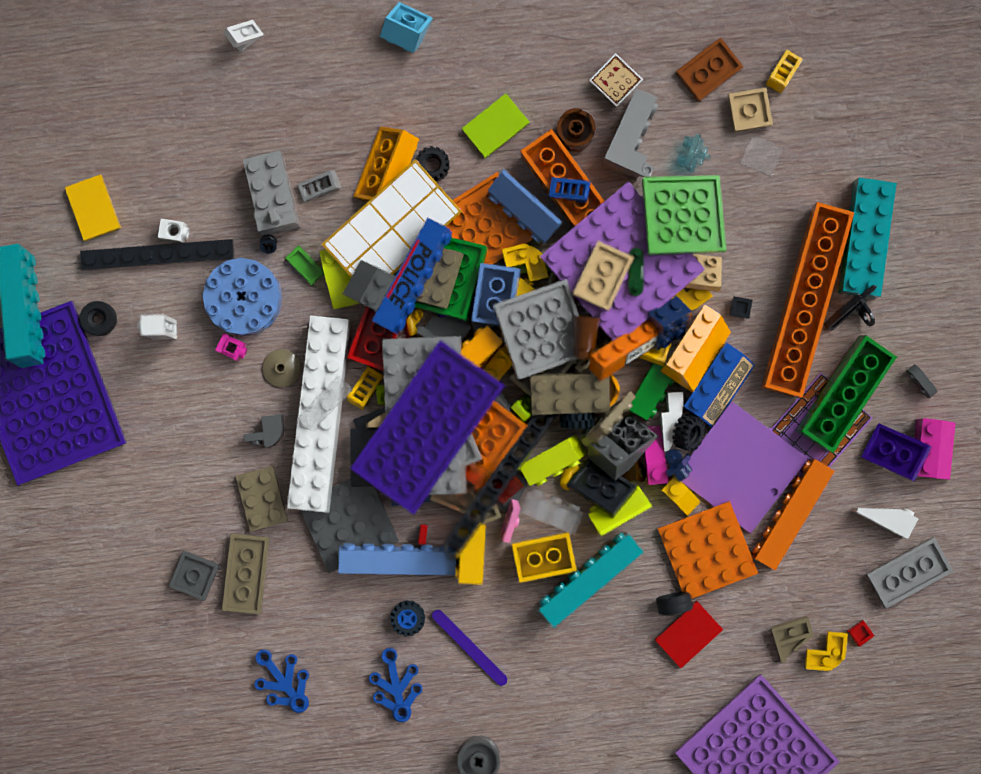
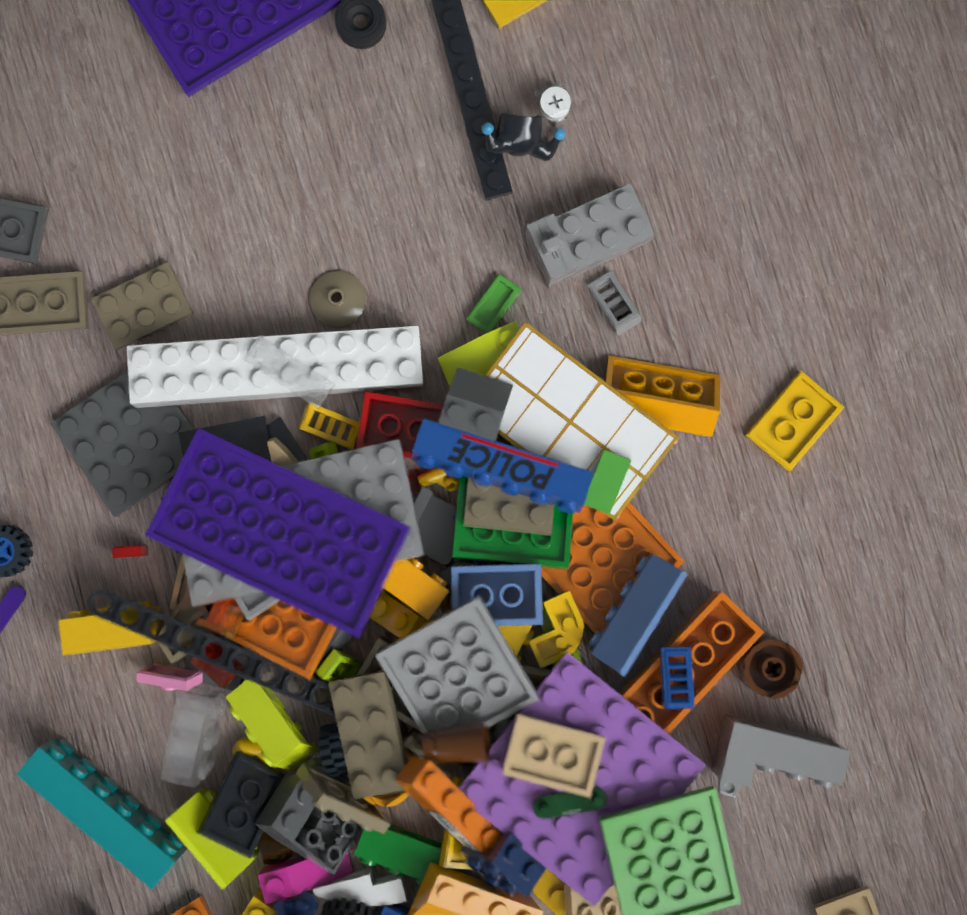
camera: 80 degrees right, 0 degrees up
(157, 327) = (358, 106): white brick -> none
(165, 229) = (507, 92): white brick -> none
(178, 200) = (553, 102): none -> white piece
(198, 225) = (520, 137): none -> black piece
(223, 297) = (422, 194): medium blue brick -> none
(240, 351) = (350, 234): dark pink window -> none
(243, 34) = (816, 149): white slope -> none
(268, 249) = (521, 244): black bush -> none
(272, 431) = (243, 302): dark grey brick -> none
(395, 560) = (82, 518): medium blue brick -> none
(405, 27) = (874, 385): medium azure slope -> none
(419, 83) = (794, 421): none -> yellow tile
(435, 210) = (607, 481): none -> bright green tile
(438, 154) = (693, 471): black tyre -> none
(495, 125) = (753, 545): lime tile -> none
(544, 557) = (124, 736): yellow brick -> none
(616, 80) = (856, 713): piece -> none
(696, 155) = (782, 850): clear light blue hips -> none
(709, 69) = (900, 850): dark orange tile -> none

